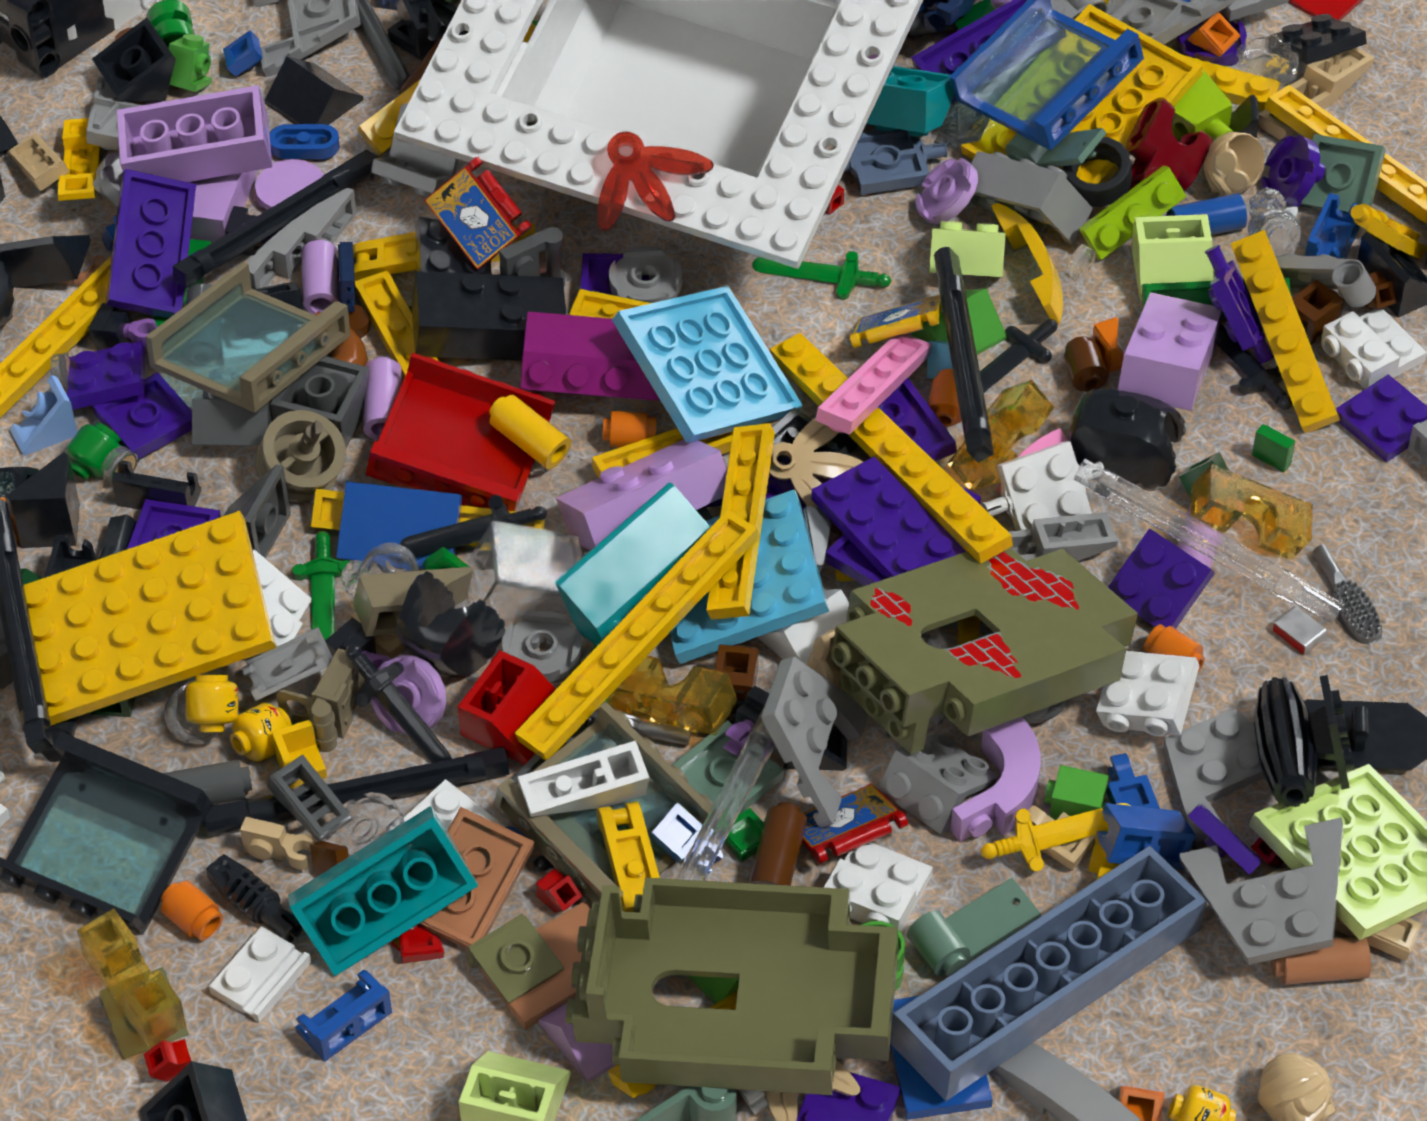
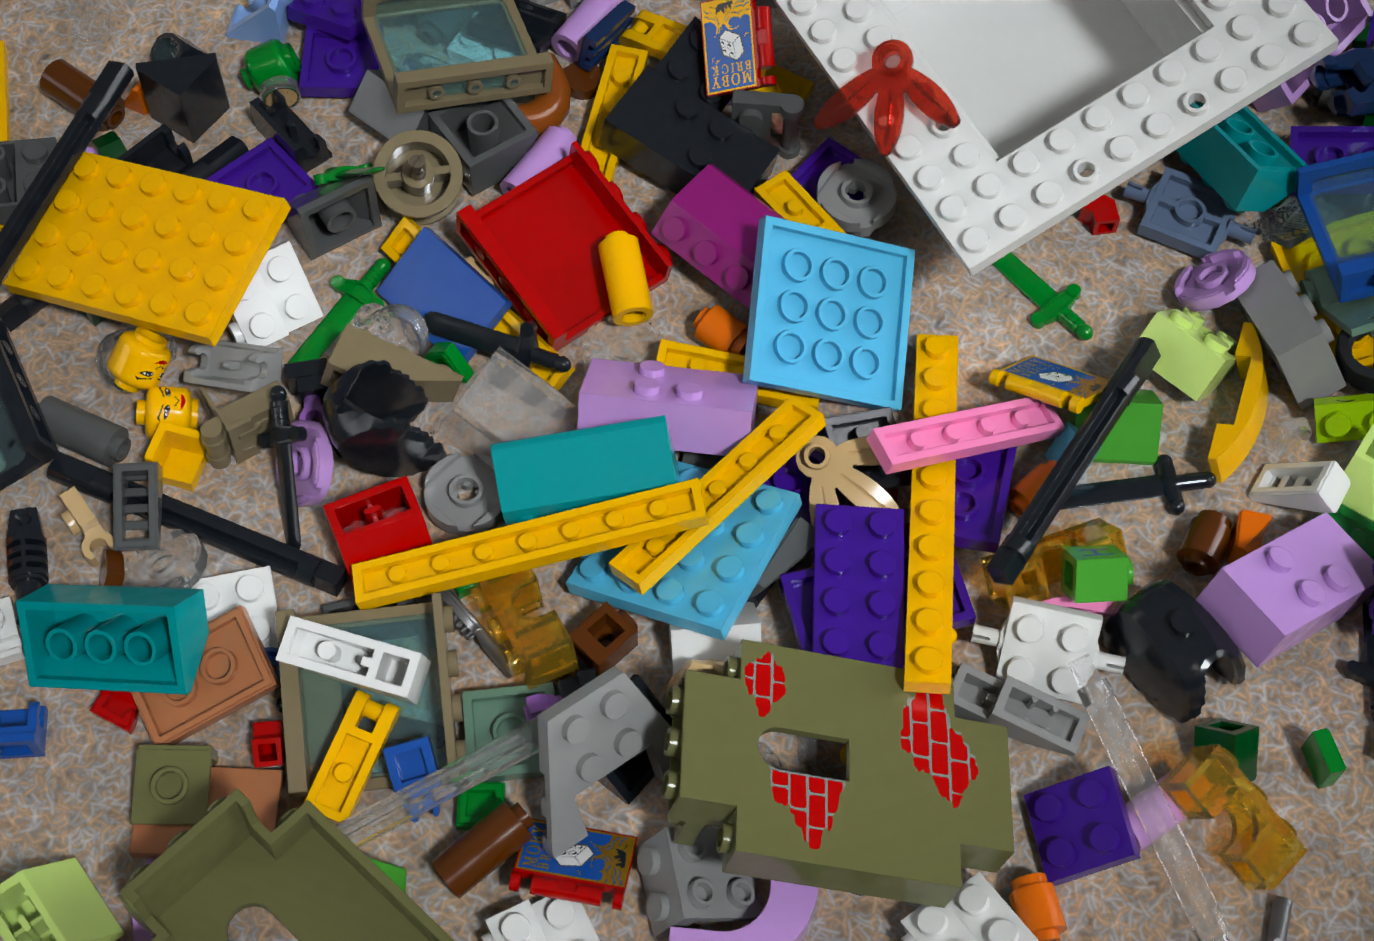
camera: 35 degrees right, 10 degrees up
(240, 485) = (342, 173): none -> green sword
(1038, 417) = (1096, 573): none -> bright green brick
(1129, 283) = (1295, 487): none -> white slope

